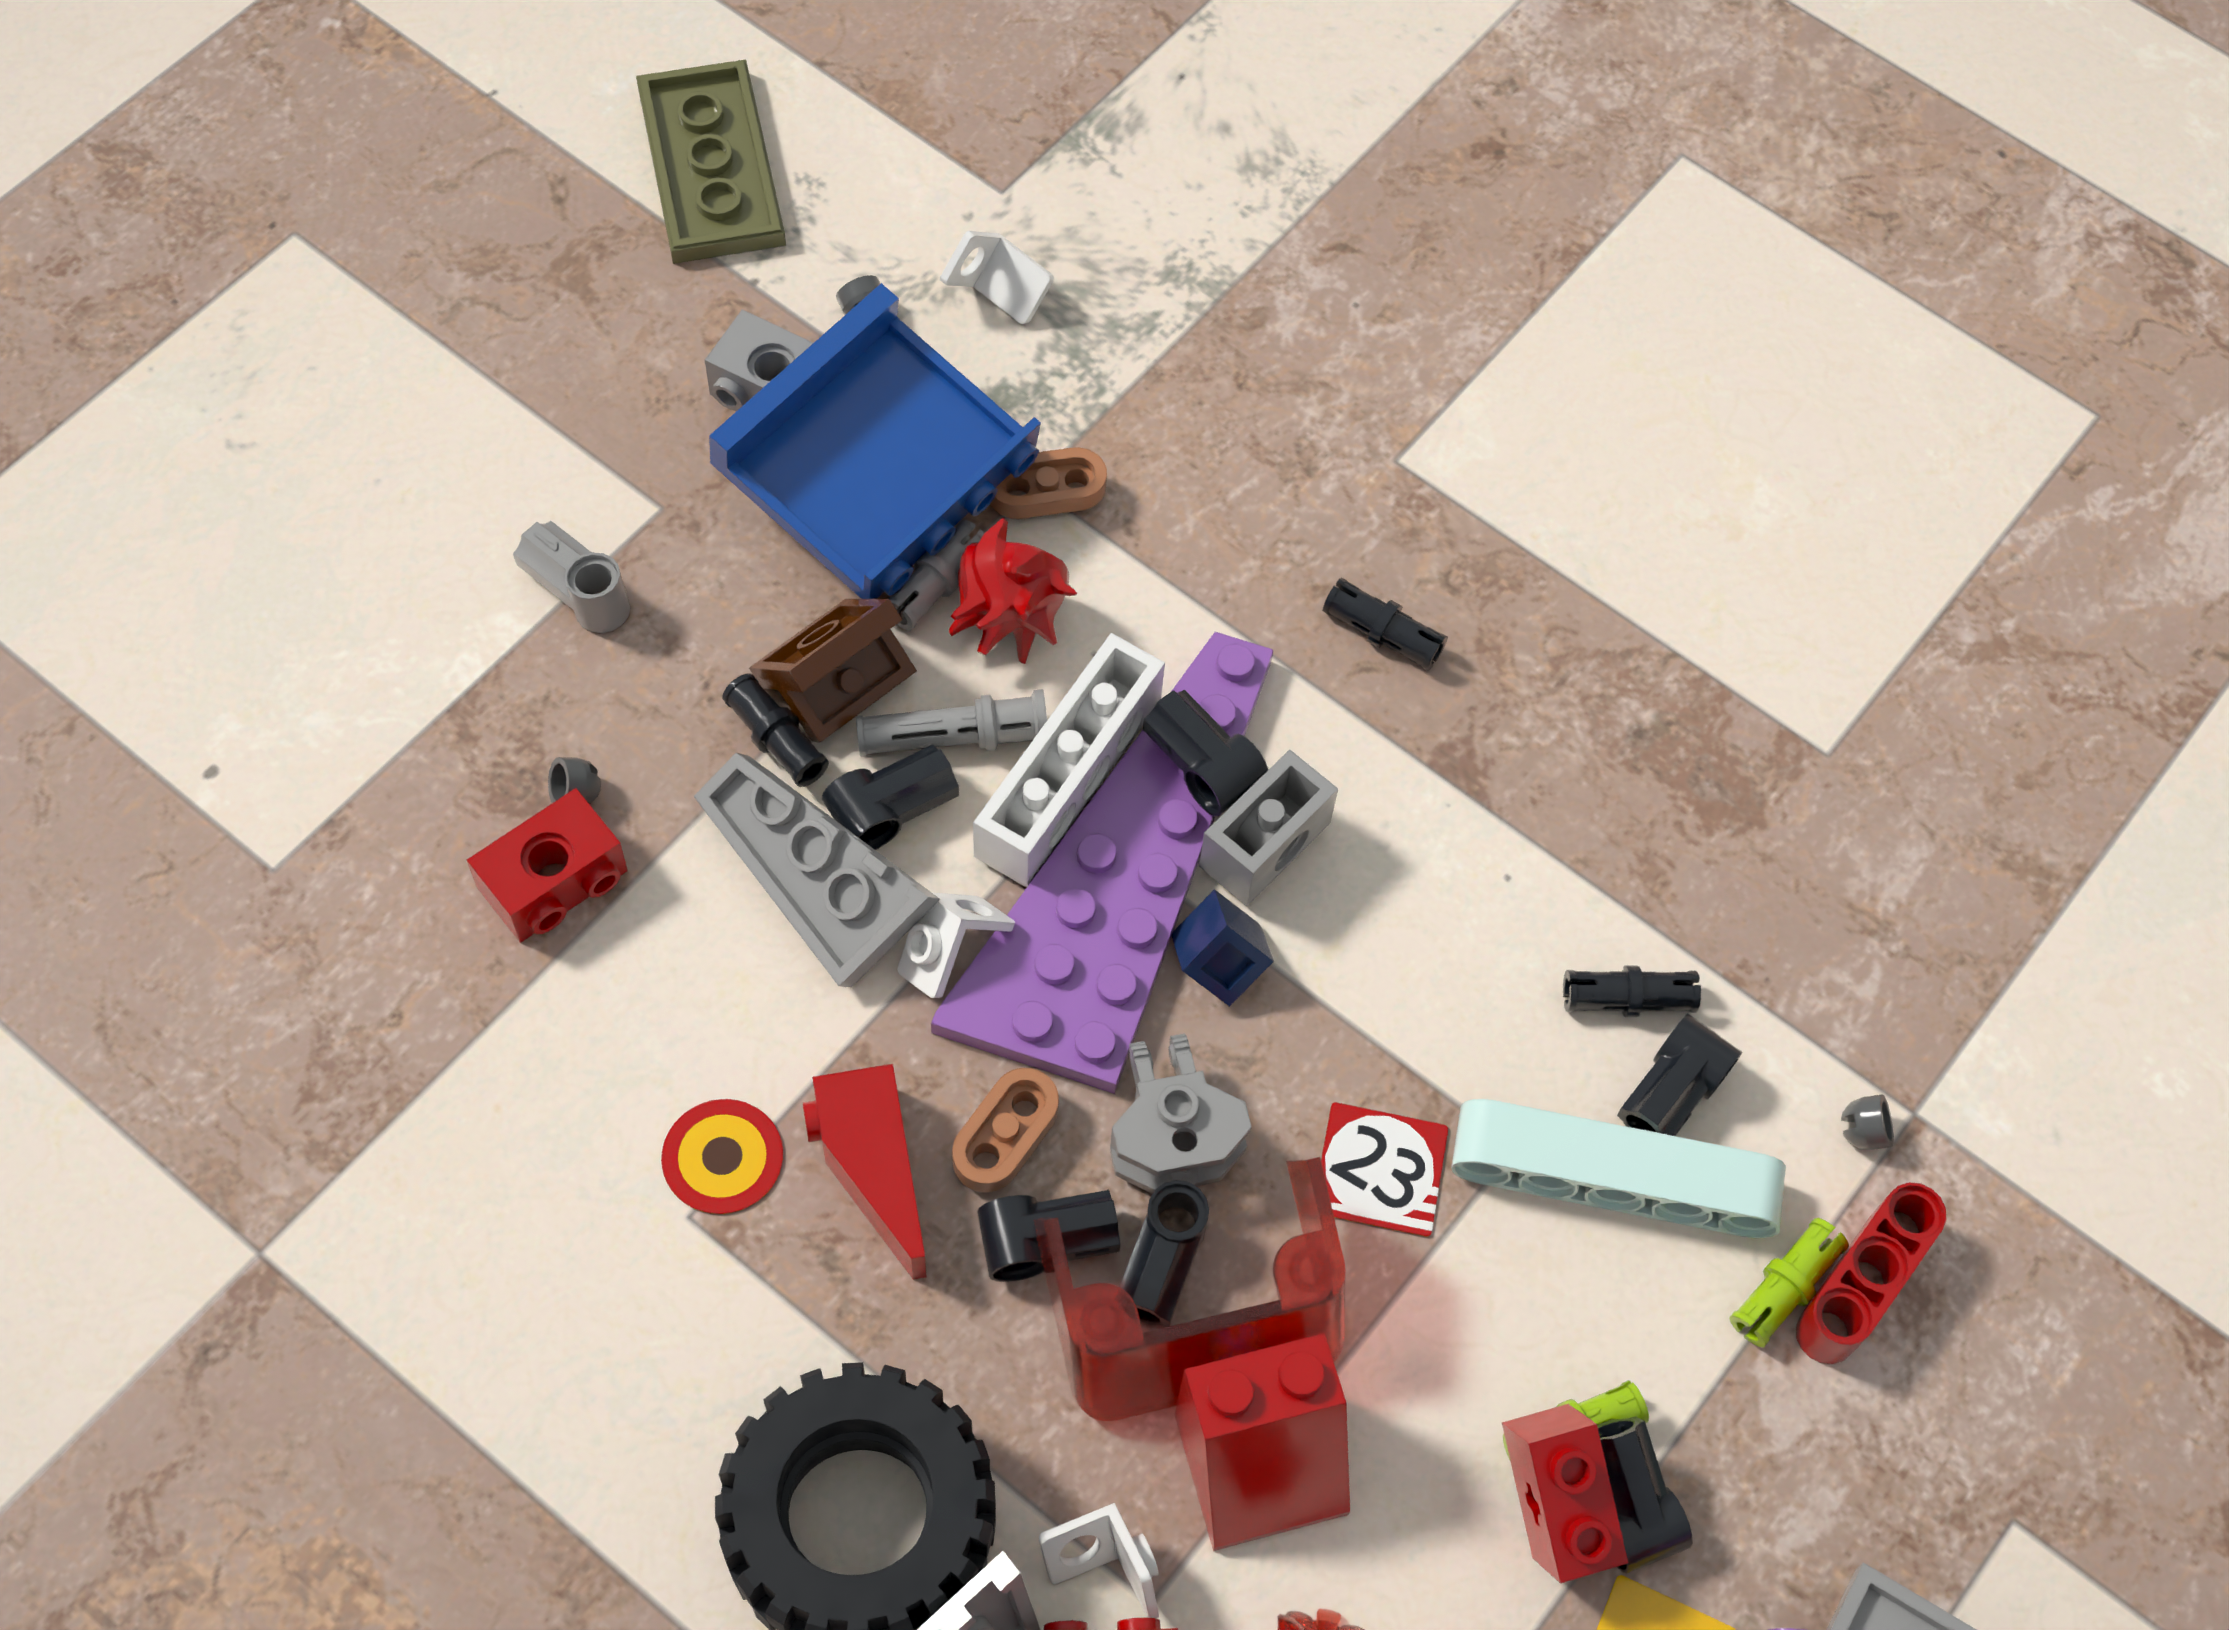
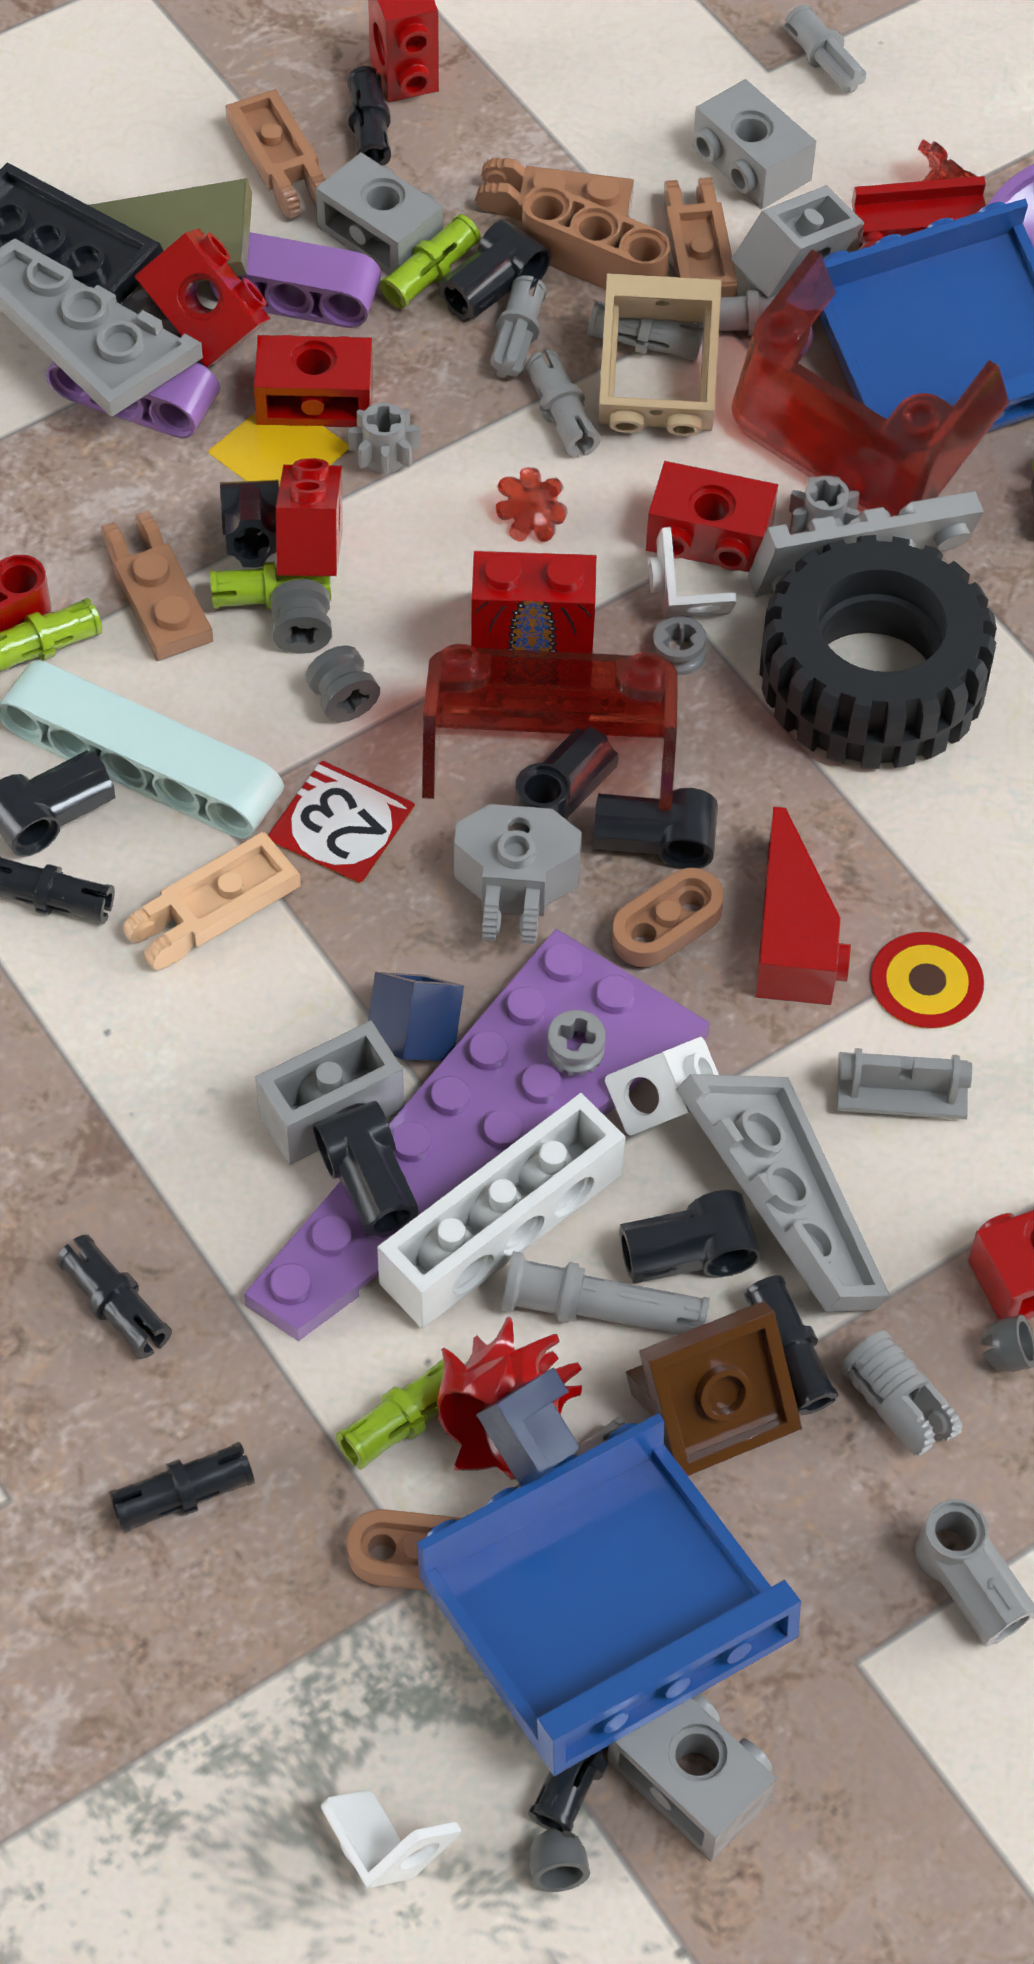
camera: 160 degrees left, 5 degrees down
(671, 713) = (900, 1393): none -> light grey hinge
(723, 1017) = (903, 1085): none -> light grey hinge
(982, 517) = (530, 1428): none -> panel
(1068, 925) = (589, 1053): none -> light grey bush
(1090, 1471) = (681, 629): none -> light grey bush
(1098, 586) = (396, 1418): none -> lime pin
(1258, 488) = (181, 1487): none -> black pin
(1442, 1311) = (342, 683): none -> dark grey wheel
(1462, 1026) = (213, 900): none -> light nougat hinge
(1522, 1384) = (301, 616): none -> dark grey wheel
(1700, 1396) = (157, 590): none -> nougat hinge

